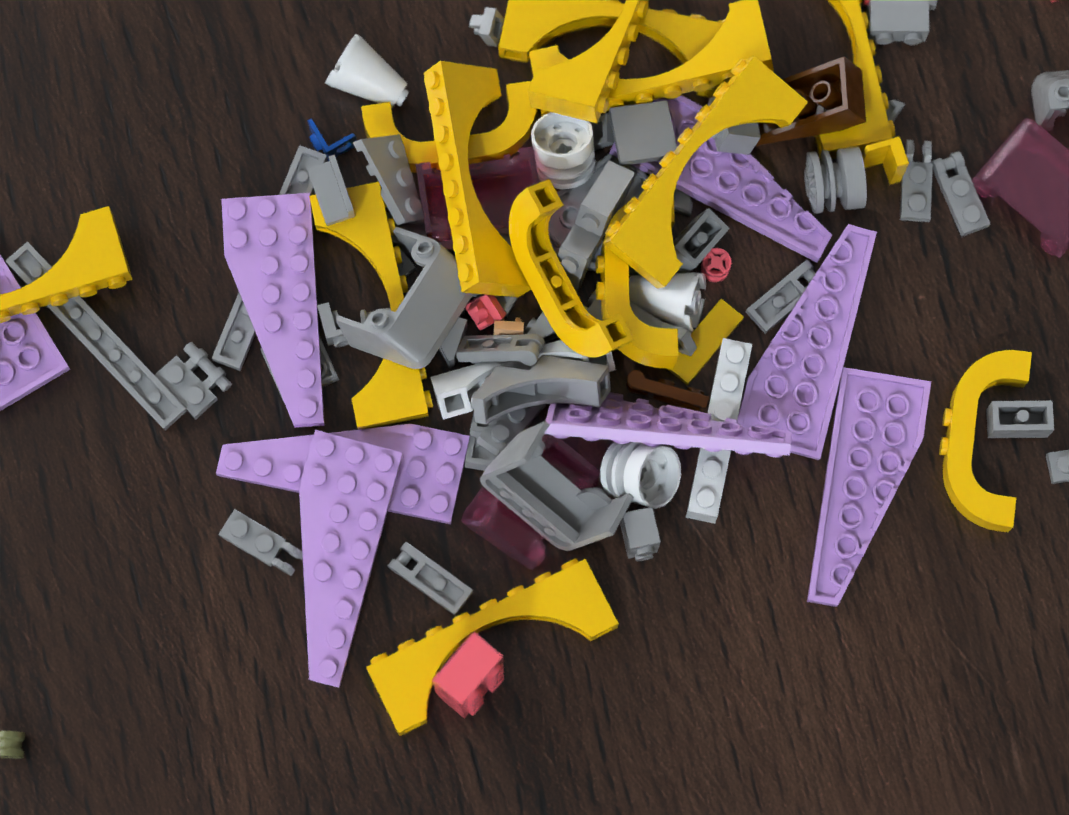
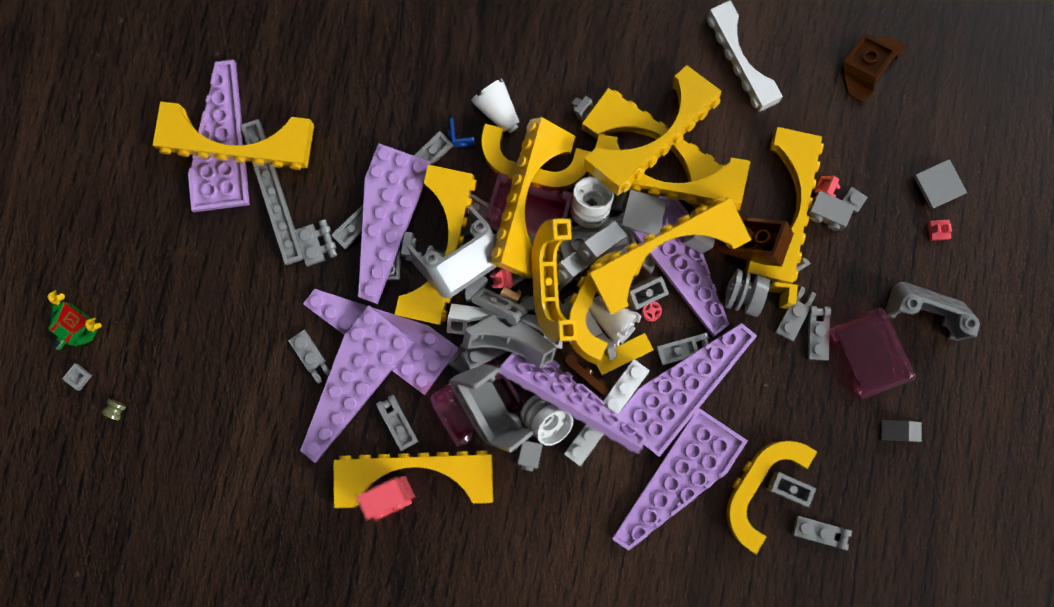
camera: 30 degrees right, 5 degrees up
(331, 192) = (440, 168): light grey panel -> none
(391, 167) = (483, 170): light grey wing -> none

